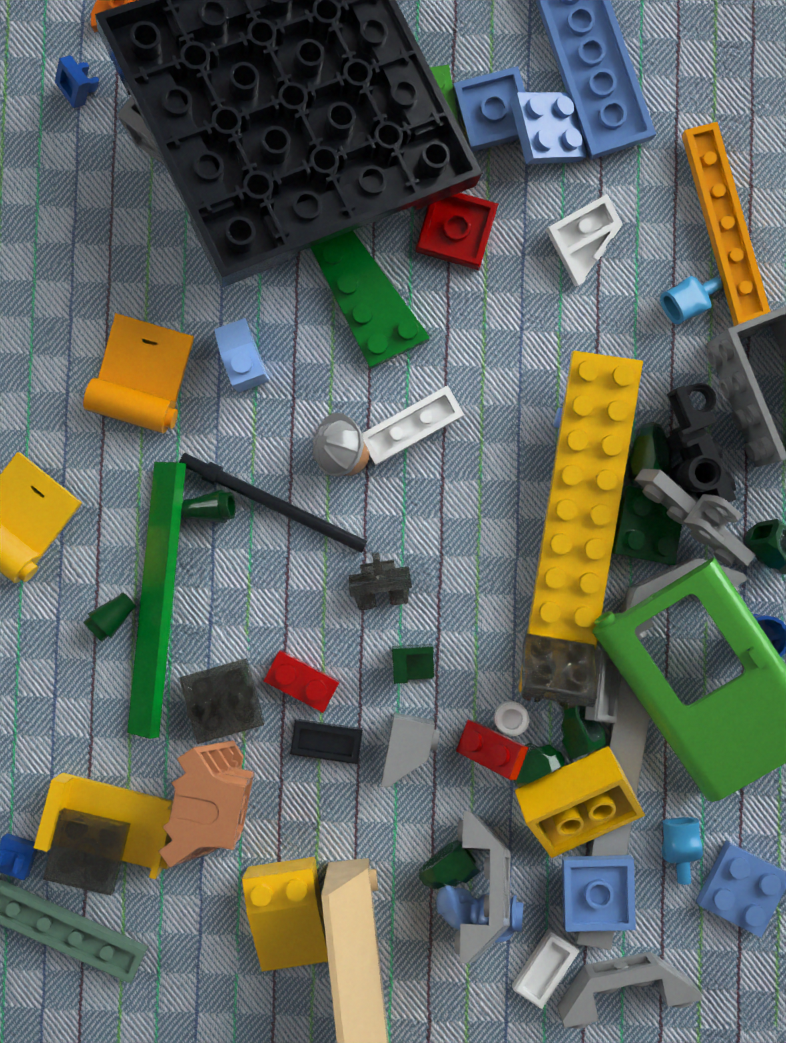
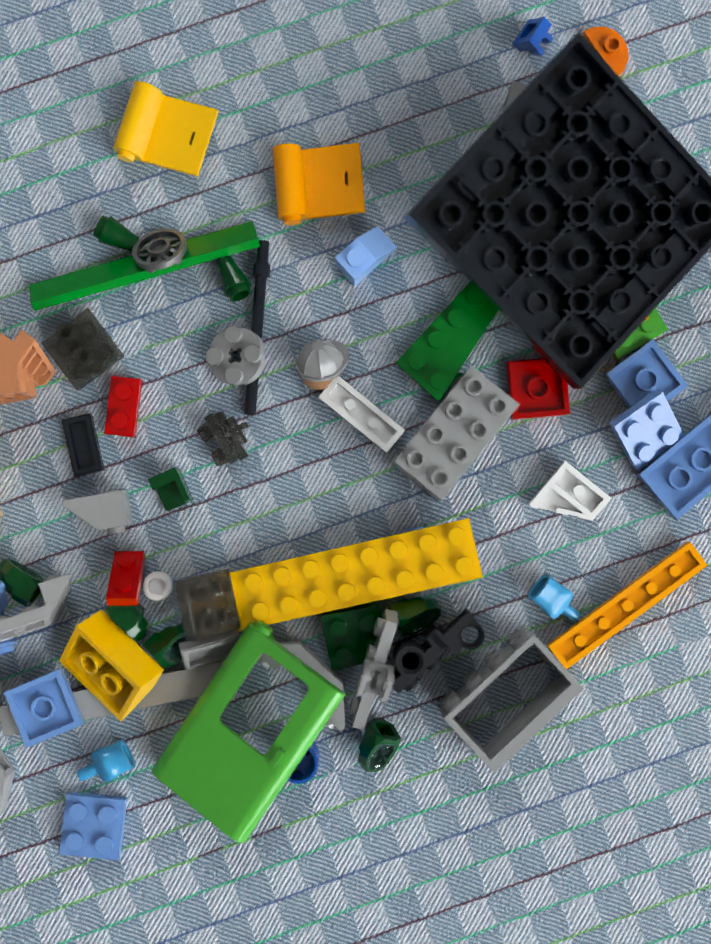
camera: 60 degrees right, 0 degrees up
(146, 574) = (159, 249): none -> flat silver wheel
(302, 518) = (252, 355): none -> light grey plate
(476, 330) = (455, 434): none -> light grey hose

